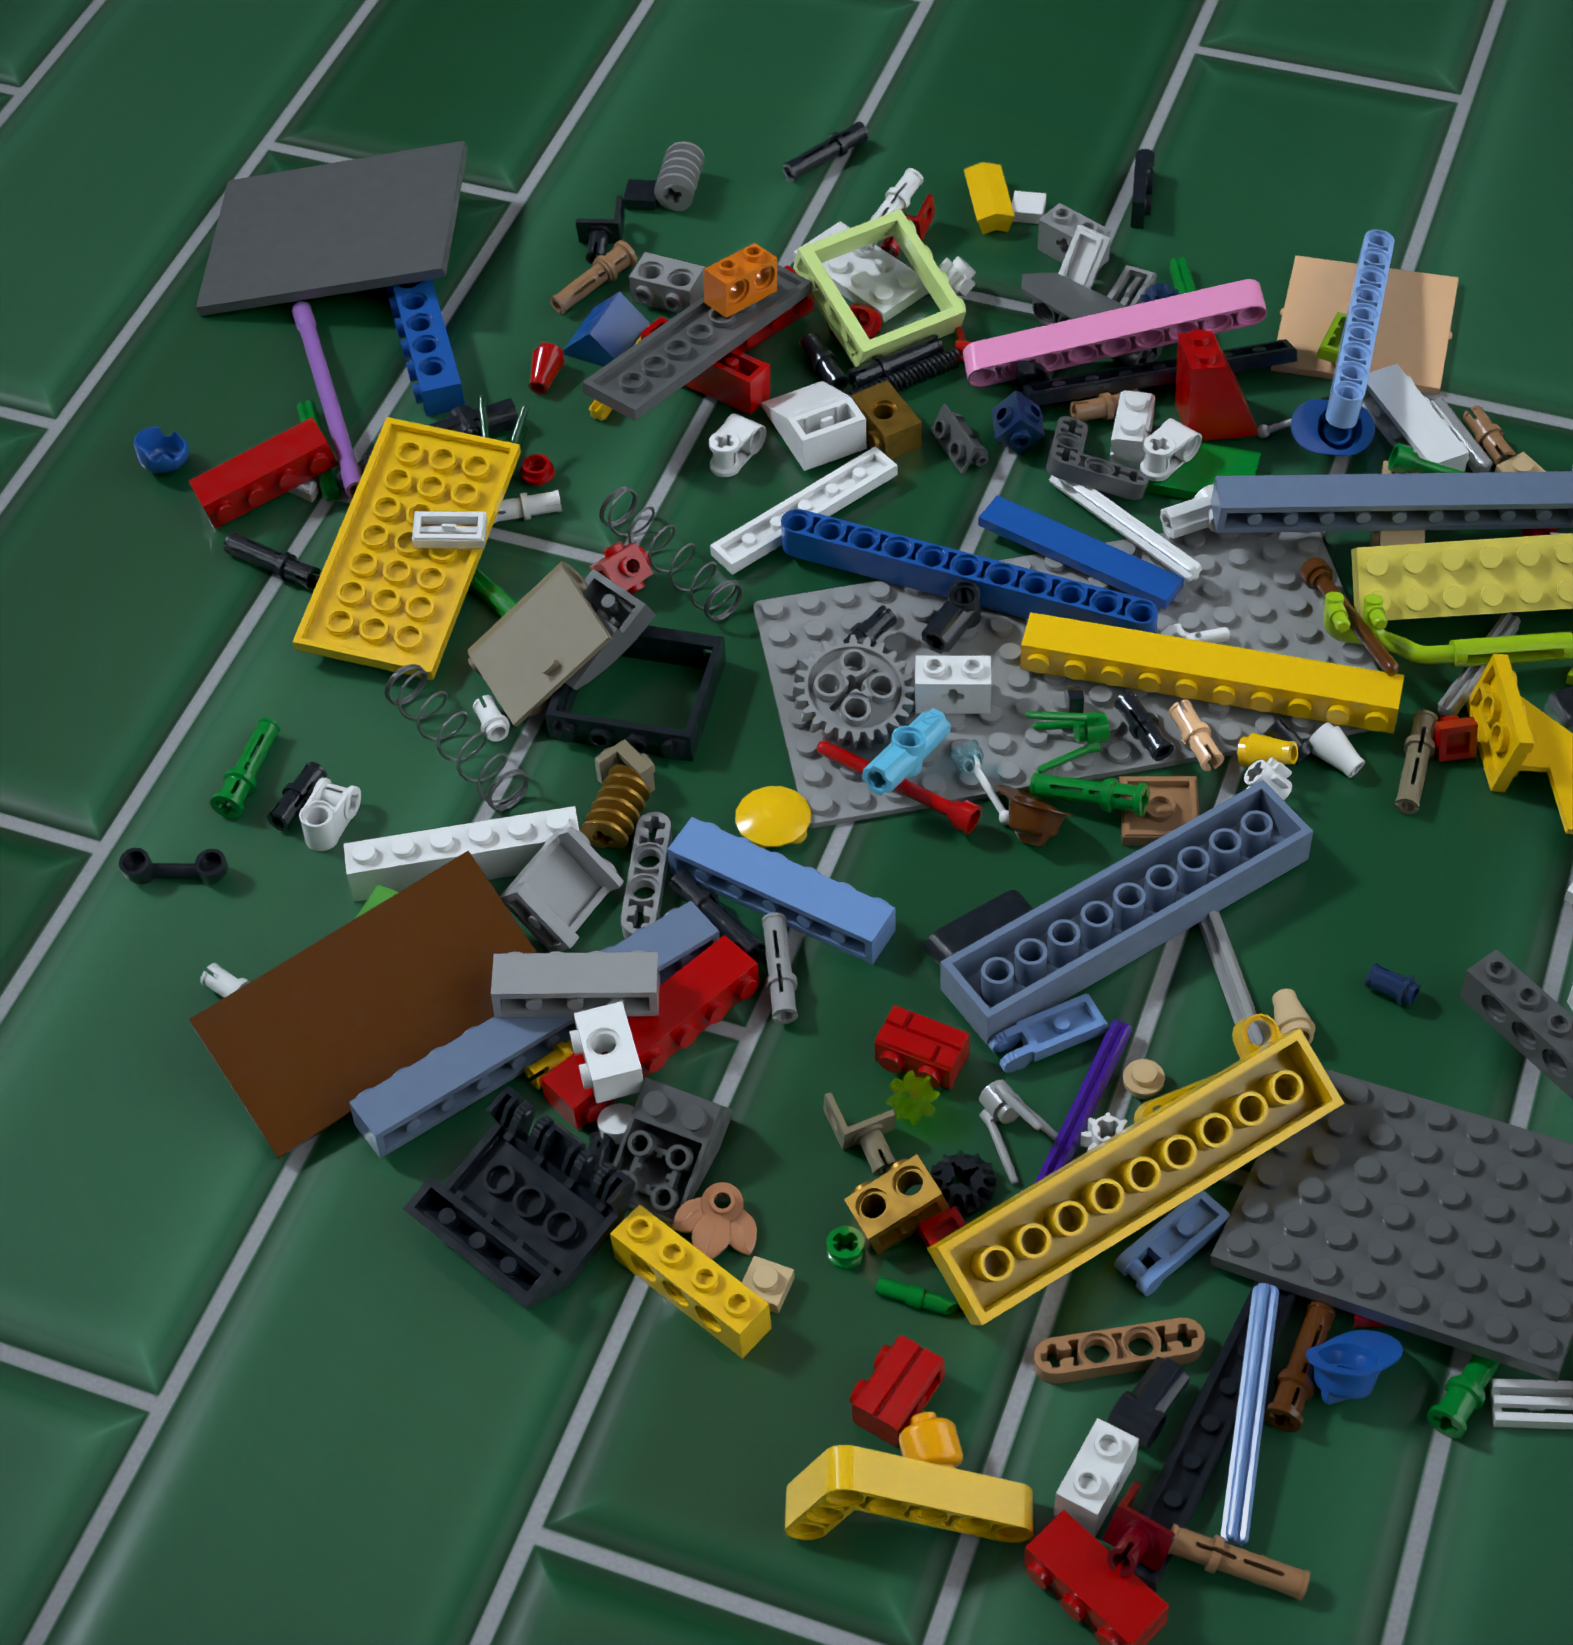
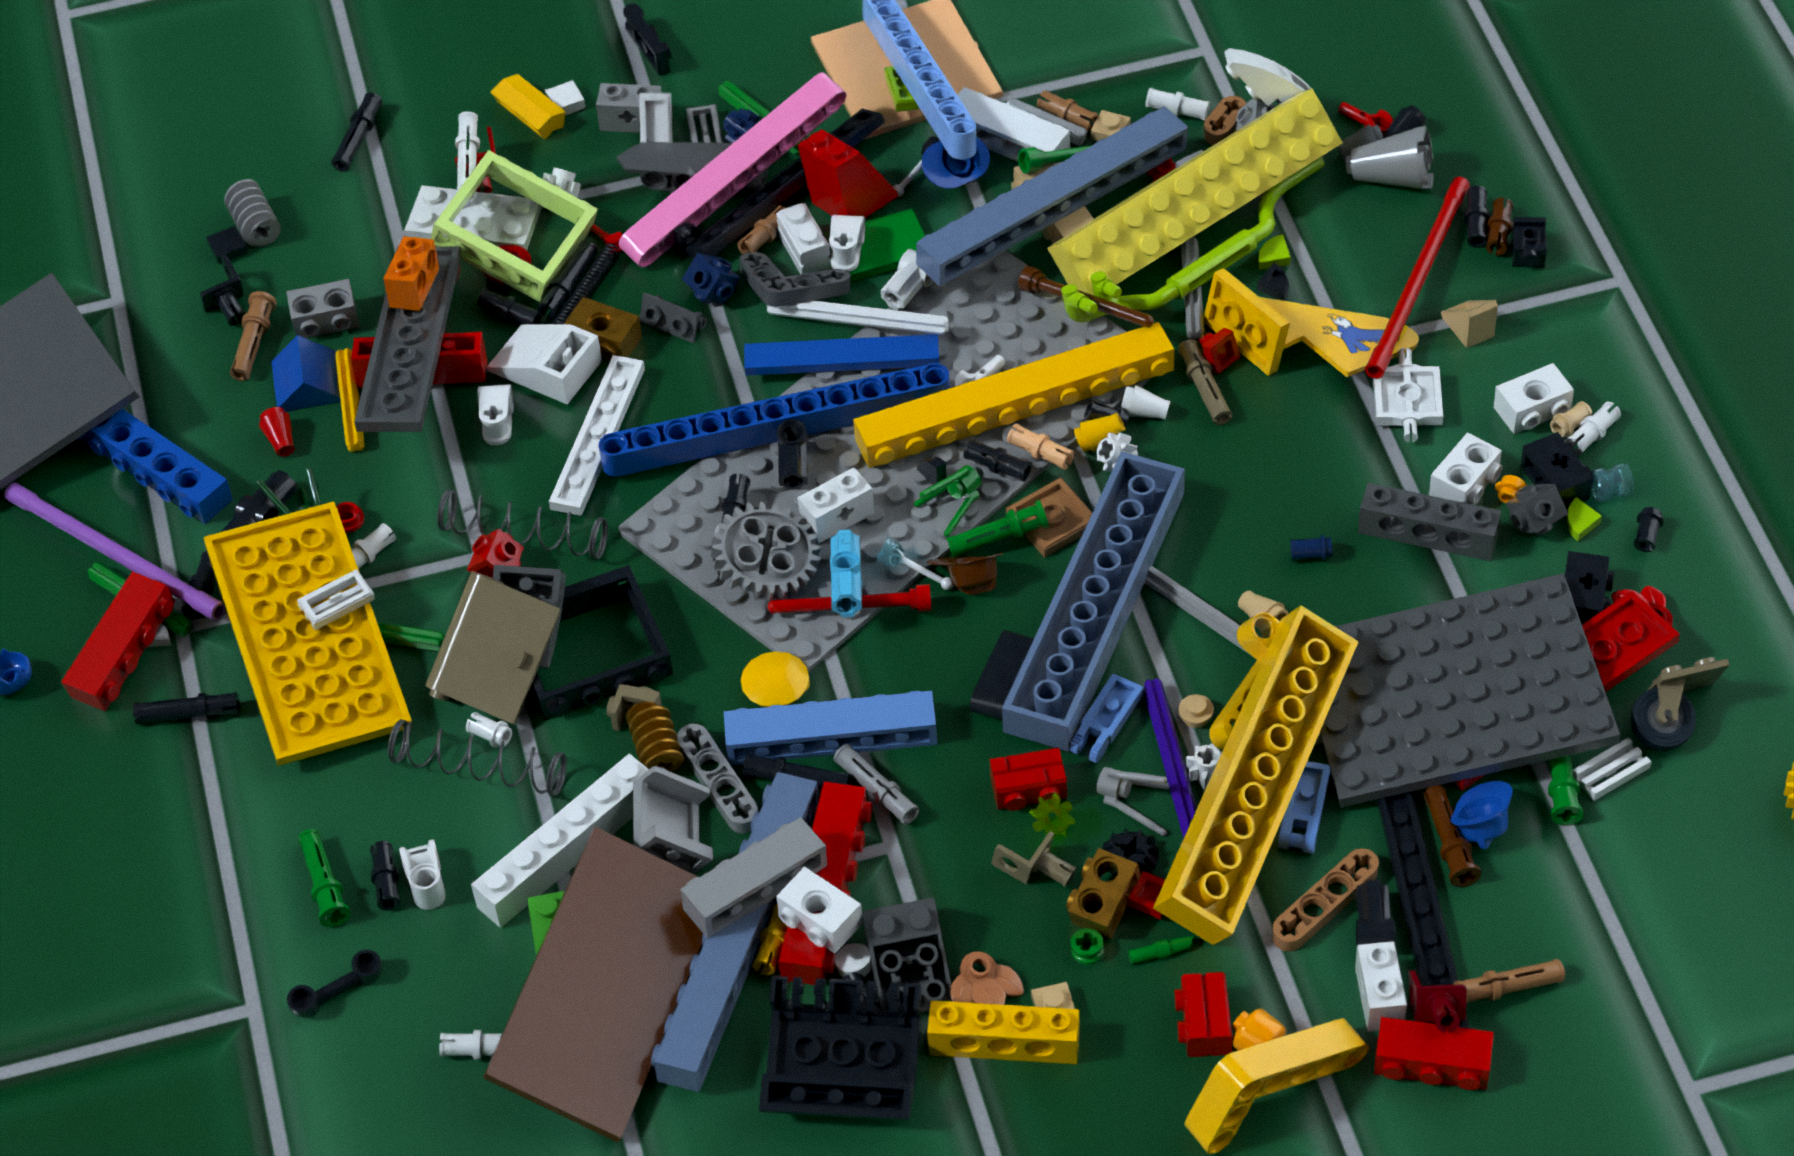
camera: 35 degrees left, 0 degrees up
(1250, 1415) = (1443, 883): medium blue axle -> none

